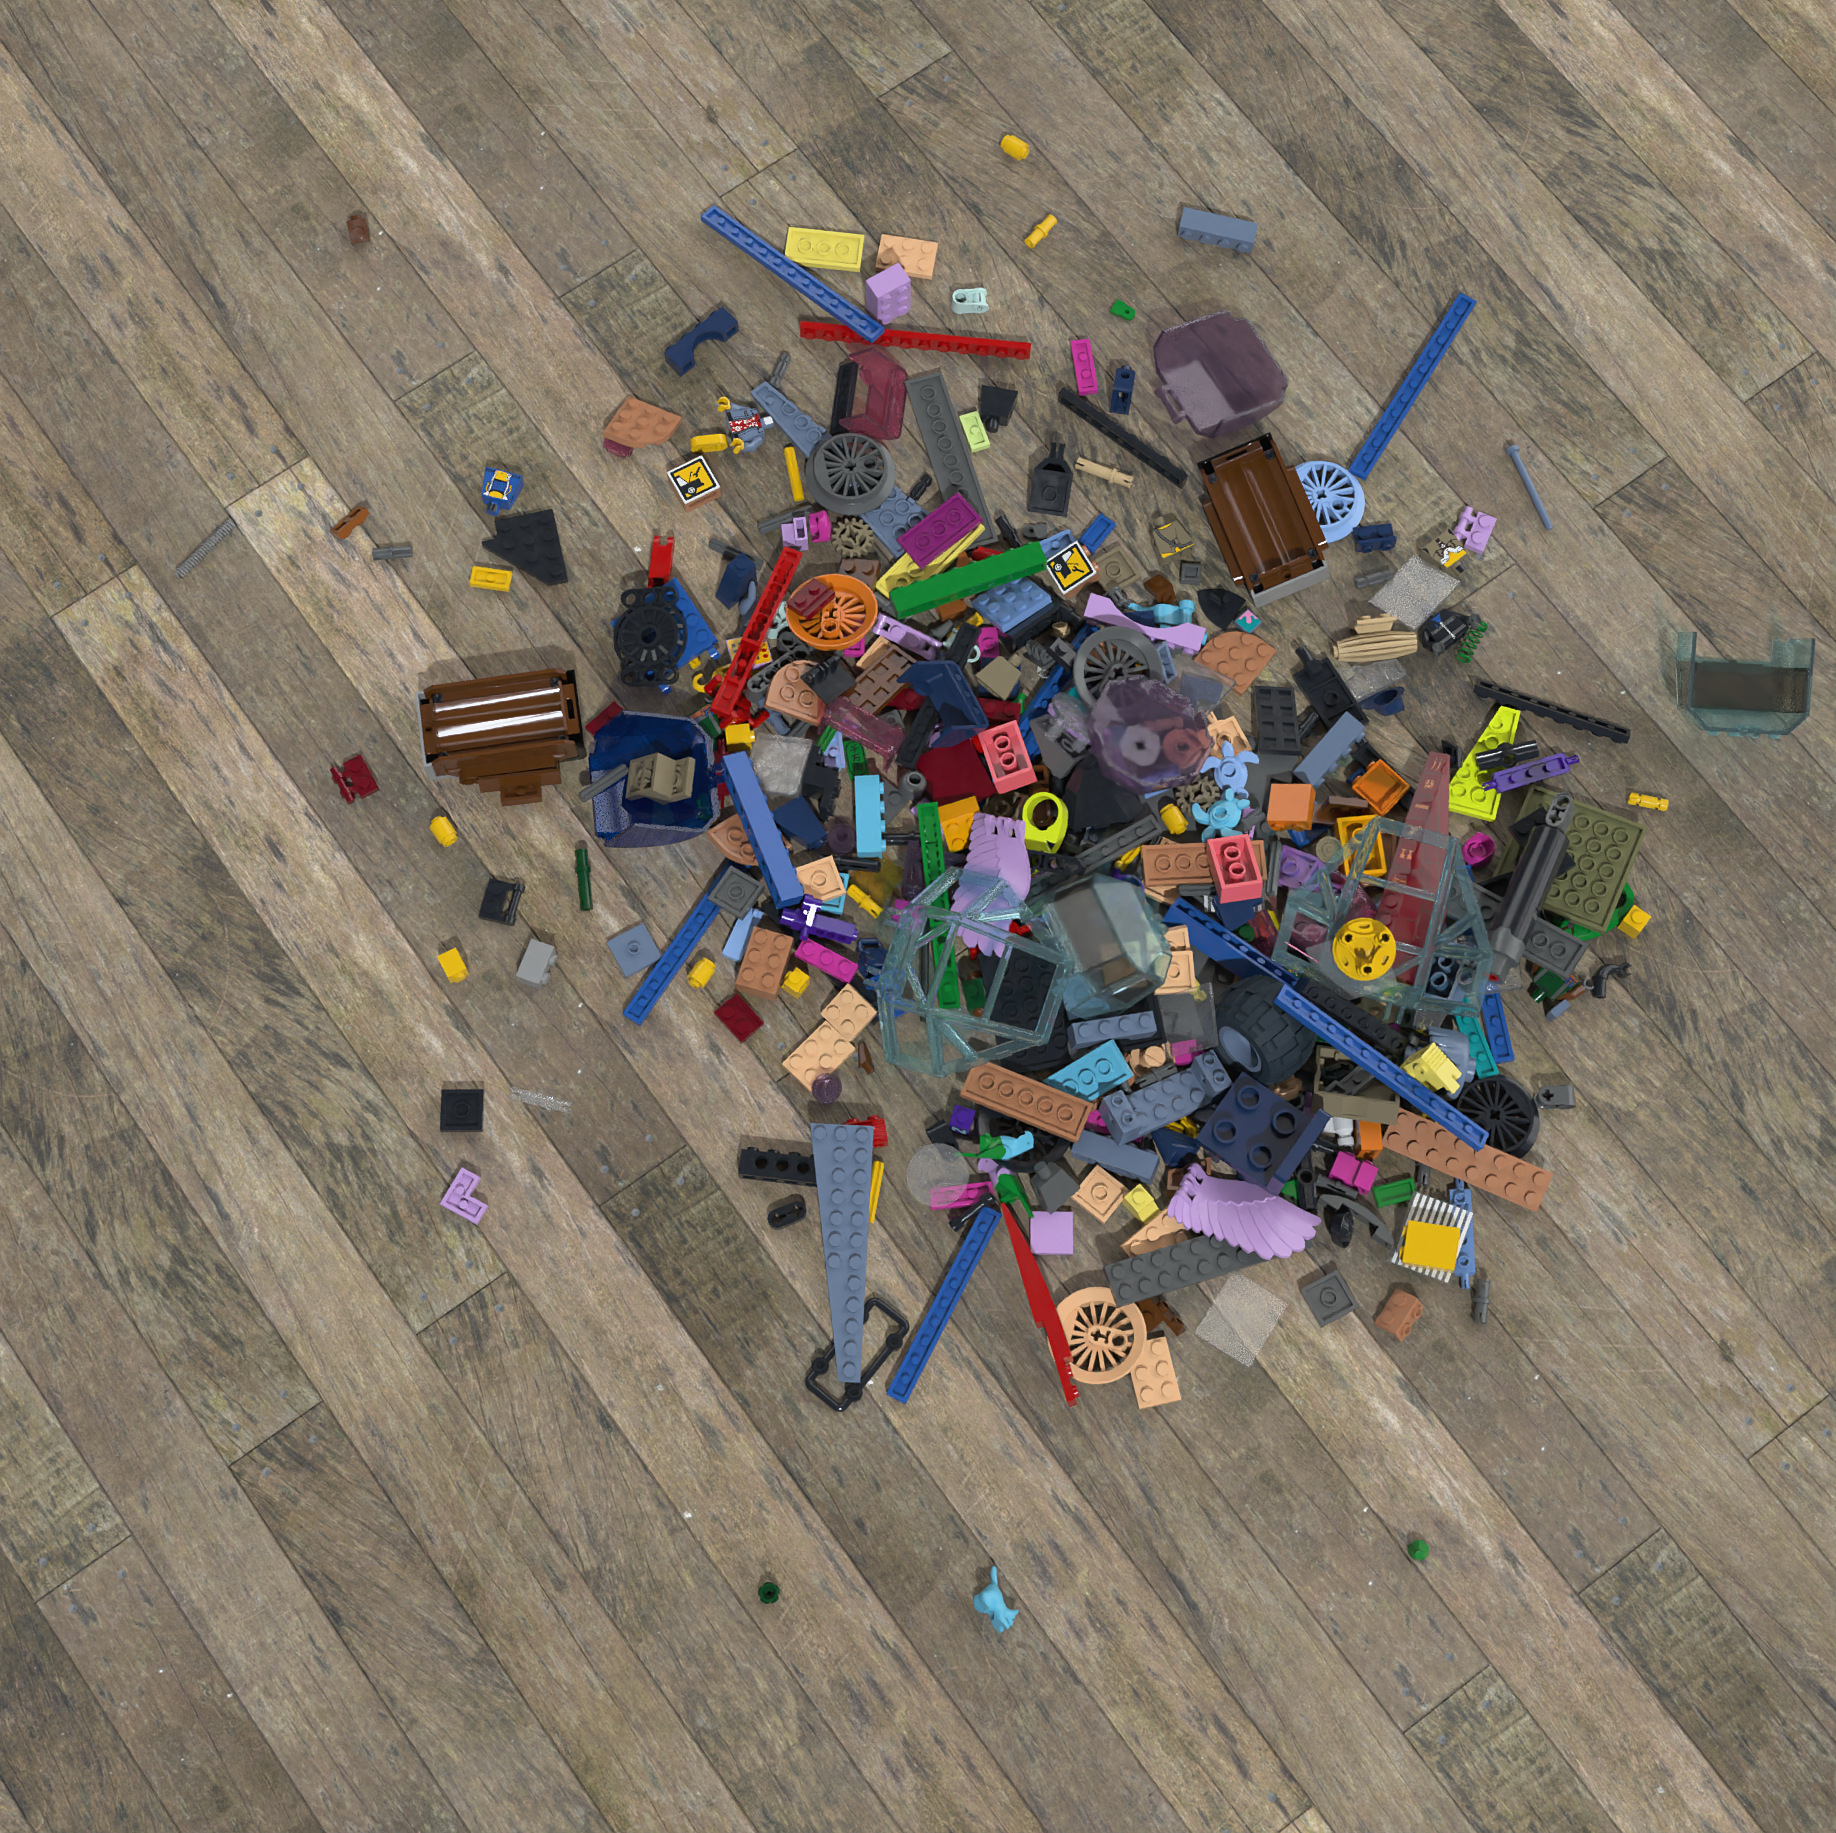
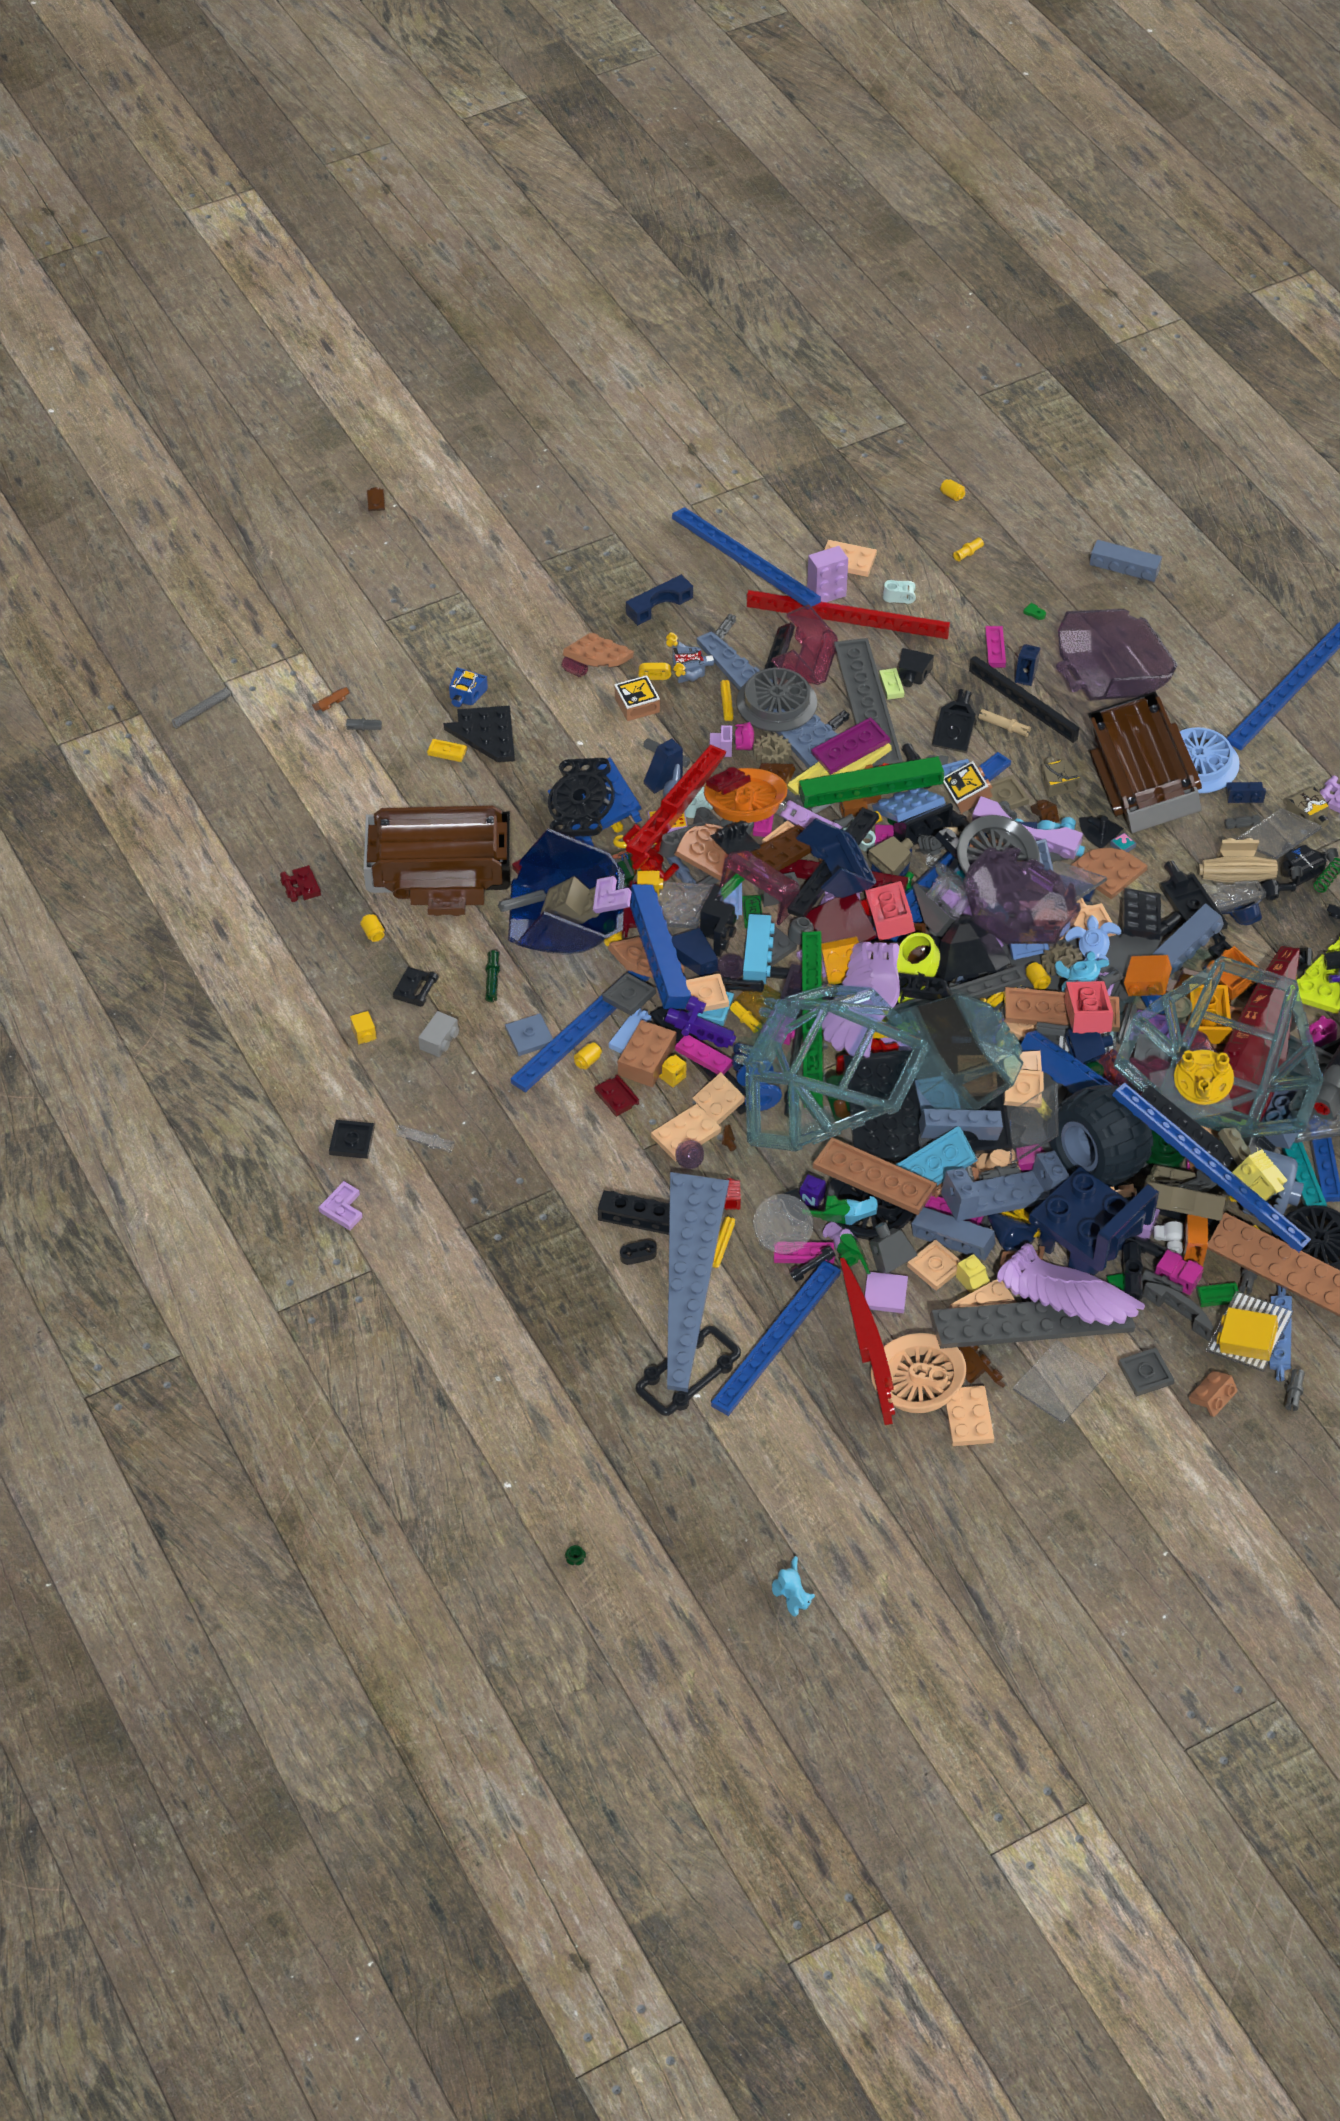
camera: 10 degrees right, 20 degrees down
(661, 562) = (600, 746): red piece -> none
(697, 780) = (609, 898): none -> lavender plate
(787, 518) = (705, 733): dark grey axle -> none
(825, 249) = (778, 545): light yellow plate -> none
(1190, 574) = (1074, 804): dark grey tile -> none
(1342, 1229) = (1164, 1314): black hat -> none
(1403, 1027) = (1235, 1144): none -> dark tan plate
(1413, 667) = (1273, 887): none -> black bar
(1418, 1550) = (1214, 1592): green rock -> none

